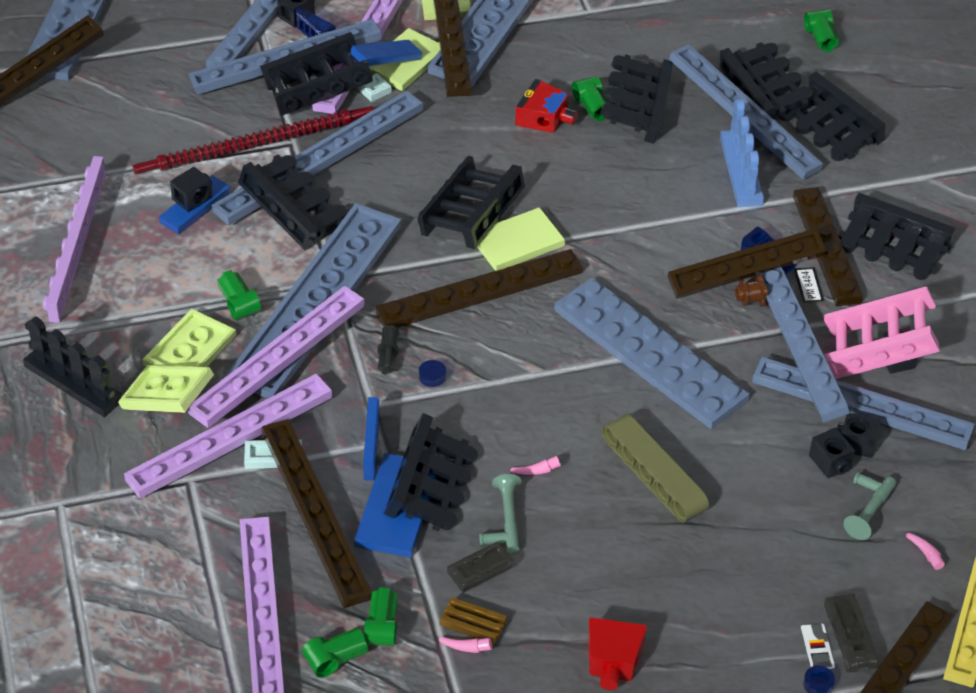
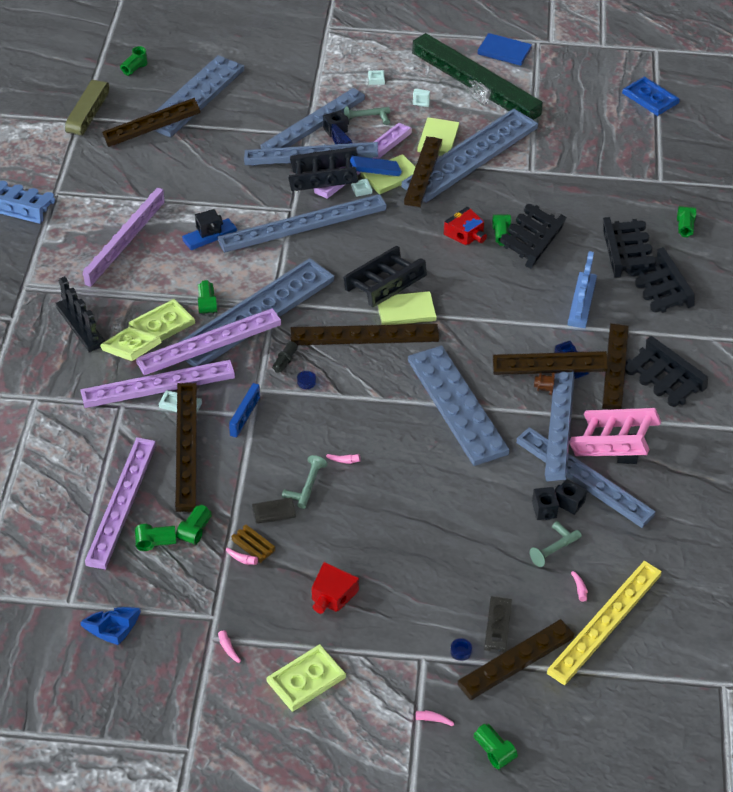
camera: 20 degrees right, 0 degrees up
(163, 162) = (202, 202): dark red hose -> none
(282, 207) = (260, 245): black fence -> none
(380, 531) = (241, 457): blue tile -> none
(408, 477) = (266, 451): black fence -> none
(655, 468) = (420, 480): olive beam -> none
(760, 123) = (602, 263): sand blue plate -> none
(809, 285) = (590, 389): sticker -> none
(817, 645) = (473, 626): sticker -> none

